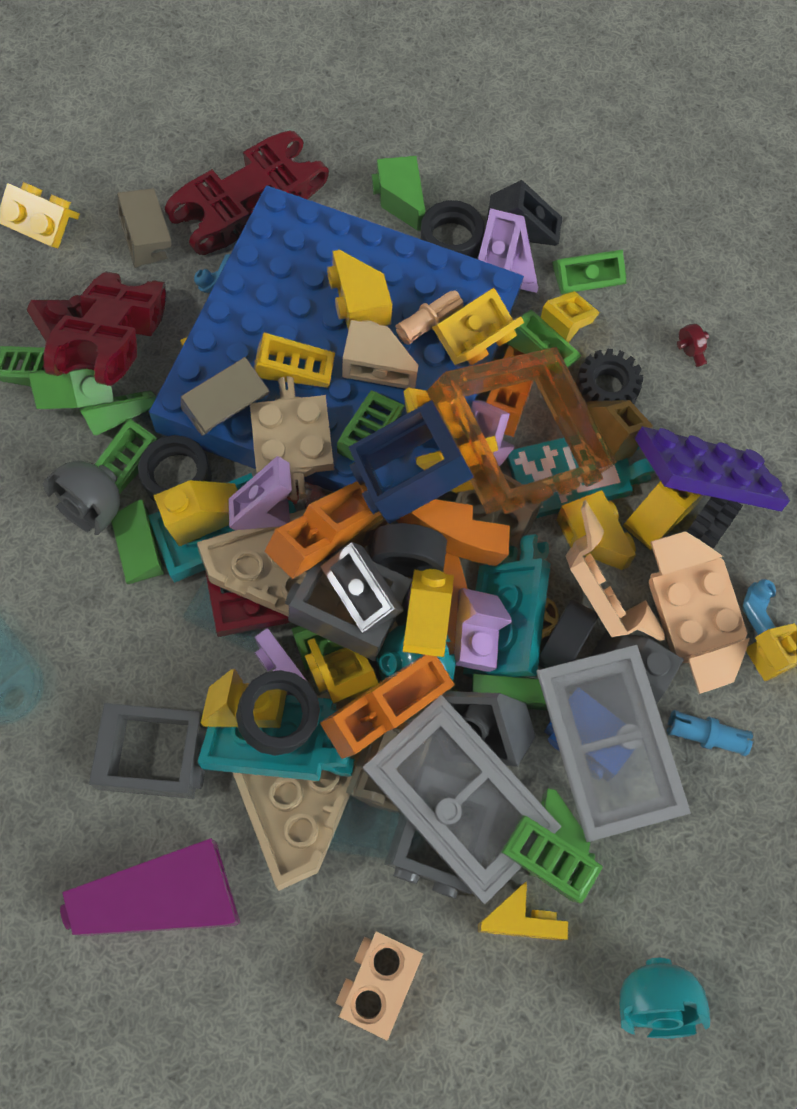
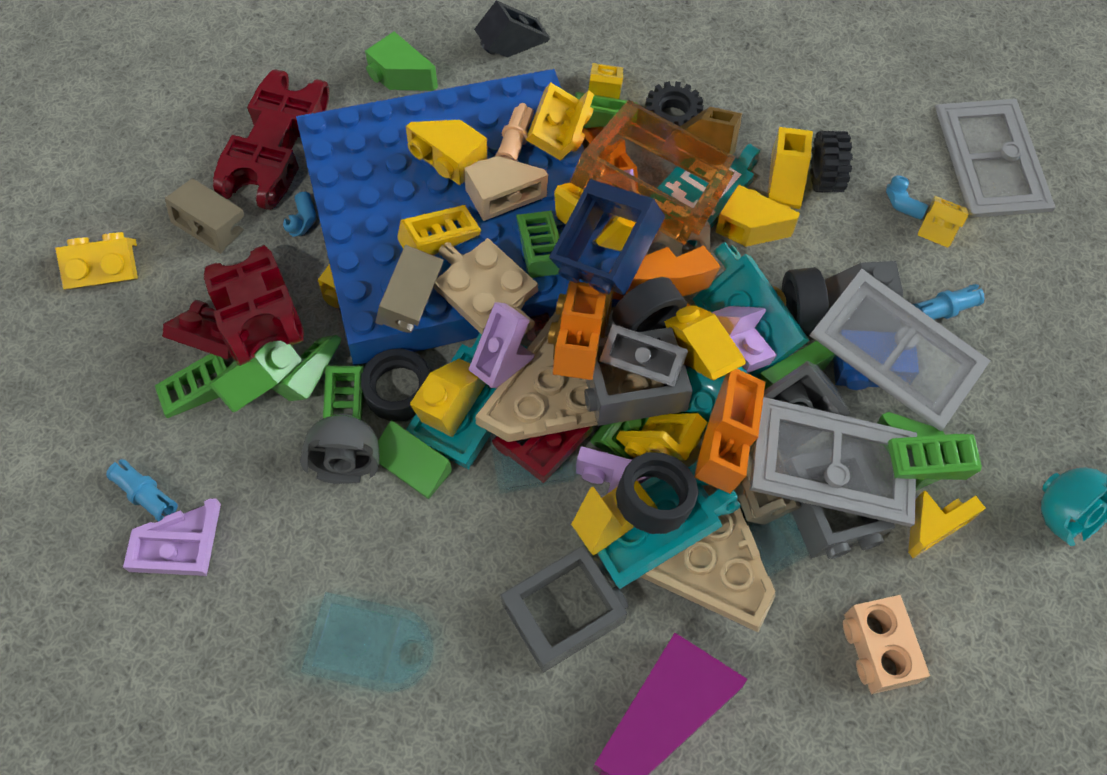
camera: 35 degrees left, 5 degrees down
(457, 213) = (461, 57): black tyre -> none
(508, 246) = (517, 53): lavender wing -> none
(590, 271) = (590, 44): bright green slope -> none
(605, 600) = (789, 245): light nougat piece -> none
(693, 342) = (707, 48): dark red piece -> none
(698, 609) = (871, 225): light nougat piece -> none
(711, 469) = (803, 118): dark purple plate -> none

